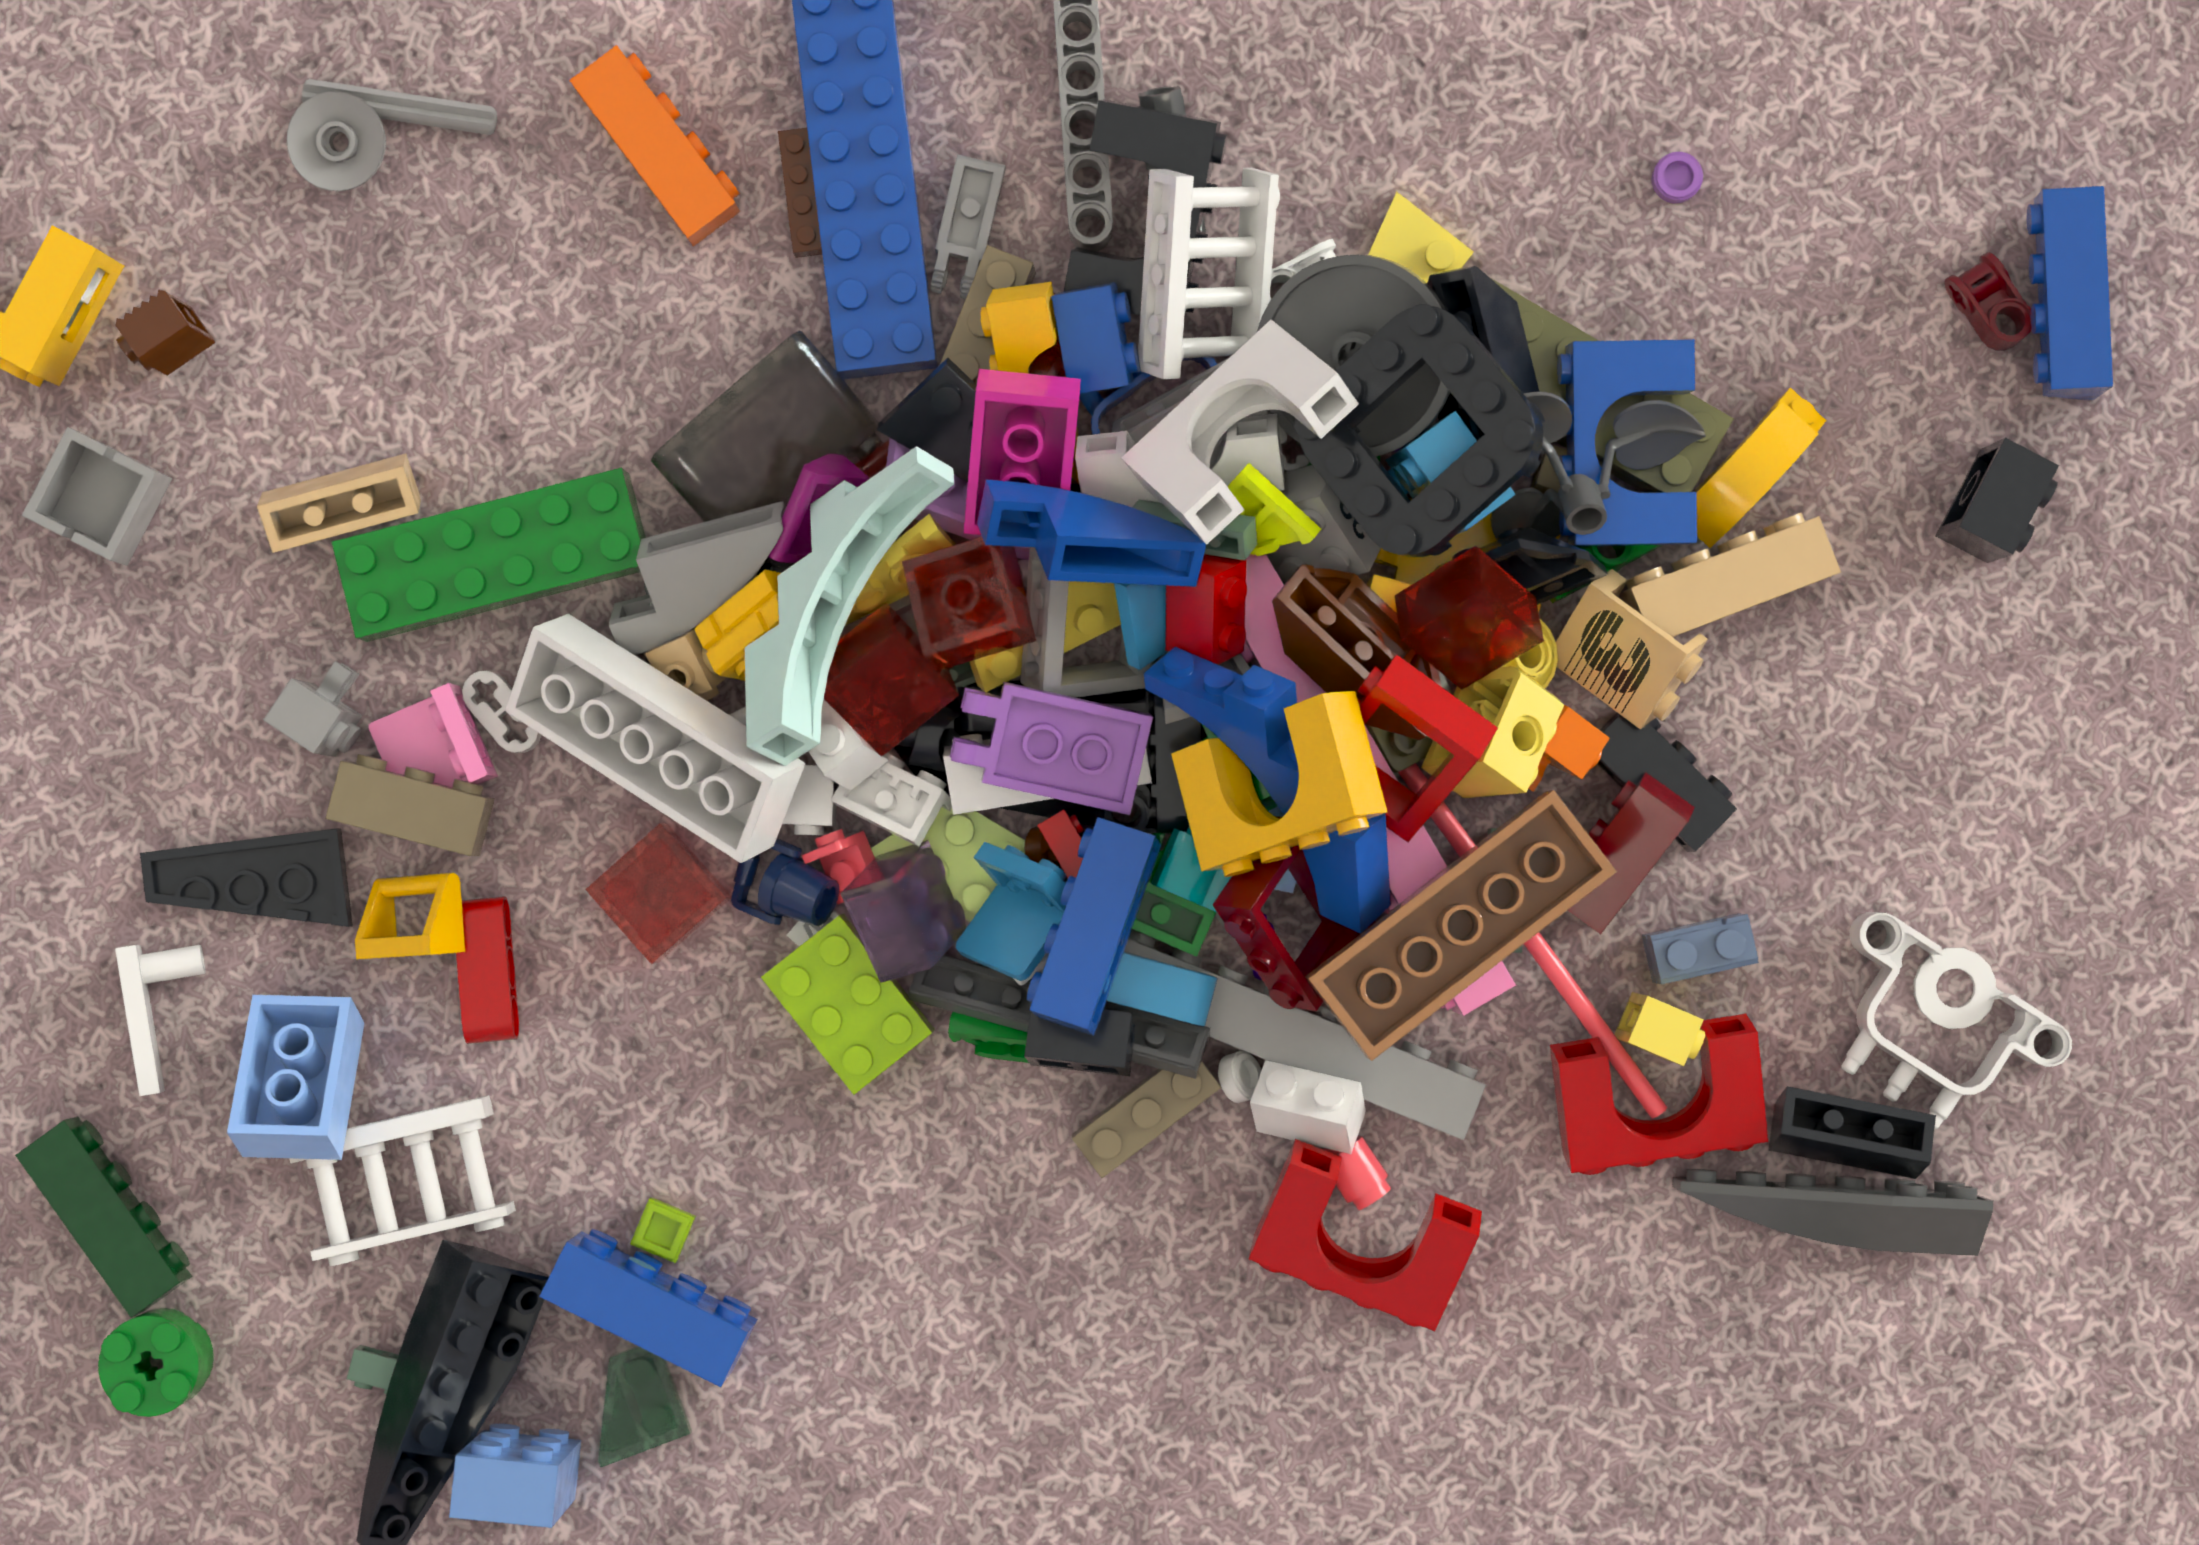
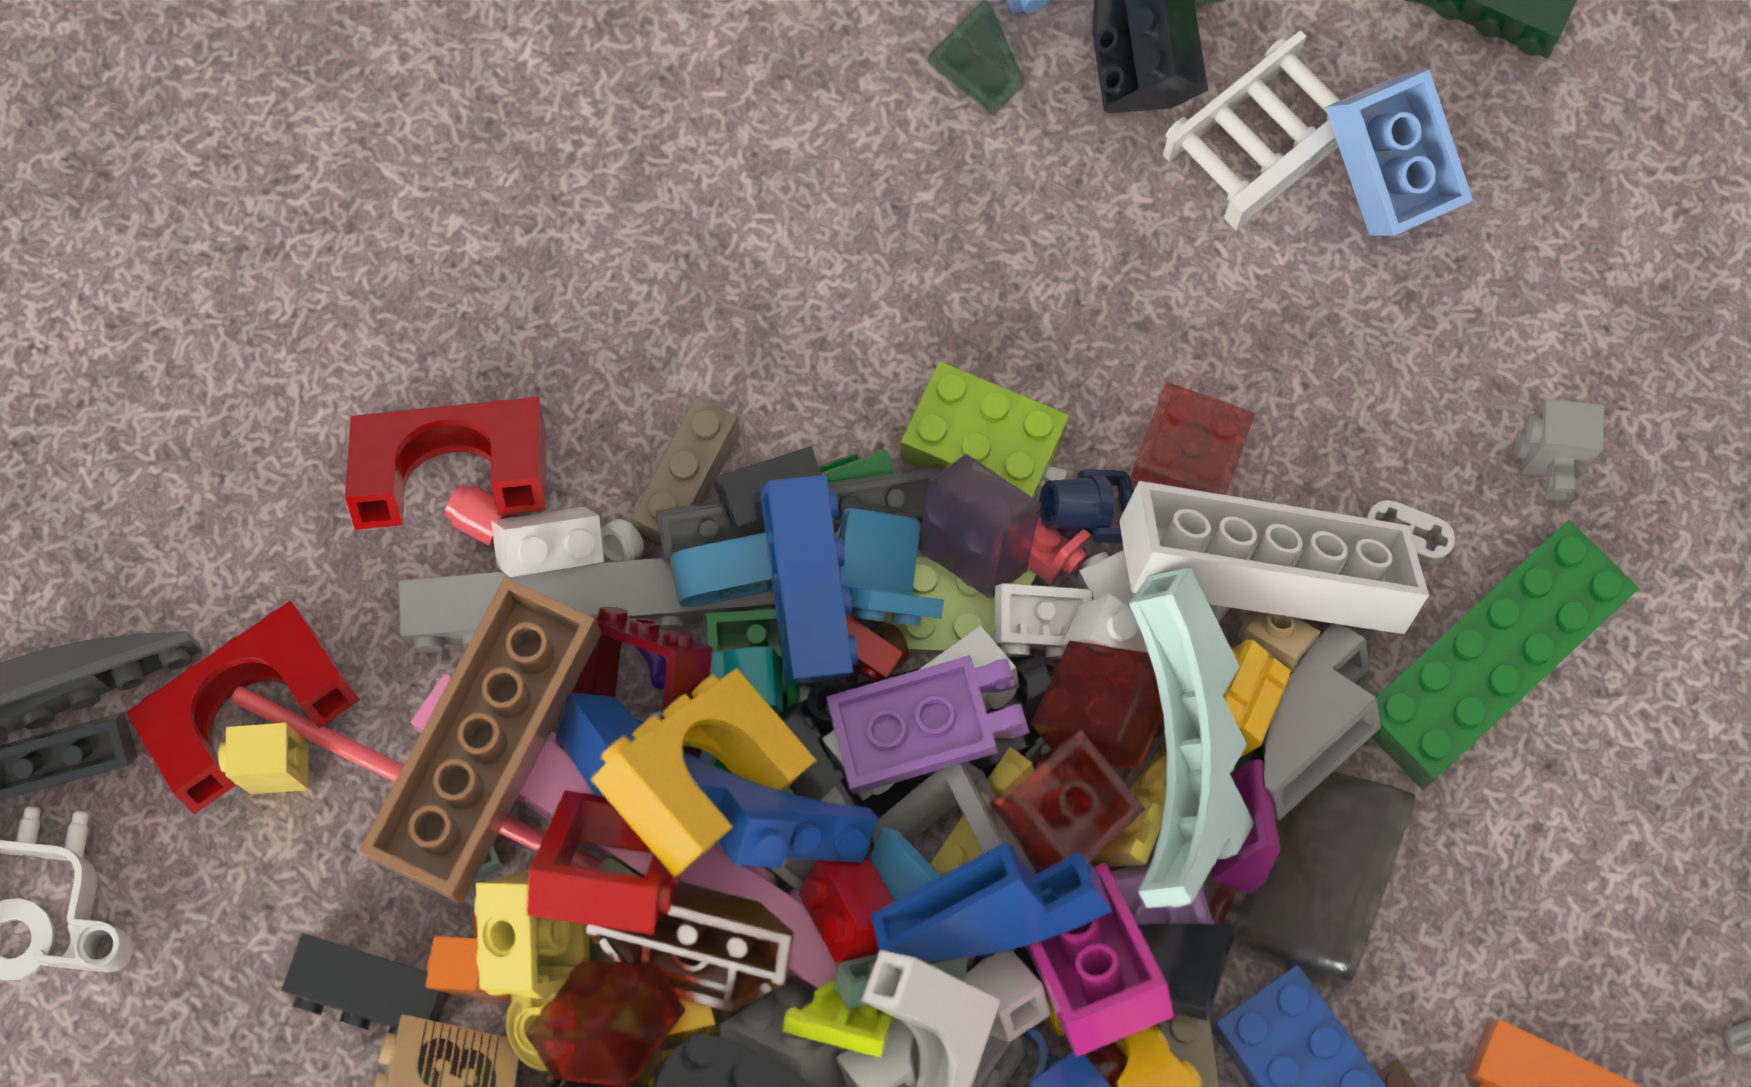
camera: 155 degrees right, 15 degrees down
(135, 973) = (1572, 173): white piece -> none
(266, 876) = (1512, 308): black wing -> none
(339, 503) = (1652, 629): tan brick -> none
(410, 805) = (1438, 410): dark tan brick -> none
(436, 738) = (1446, 471): bright pink bracket -> none
(443, 926) = (1401, 303): yellow tile -> none
(487, 972) = (1297, 319): red beam -> none
(650, 1306) = (1014, 122): blue brick -> none
(663, 1230) = (1036, 195): lime tile -> none
(1633, 842) = (362, 912): dark red brick -> none
(1700, 948) = (261, 852): sand blue brick -> none

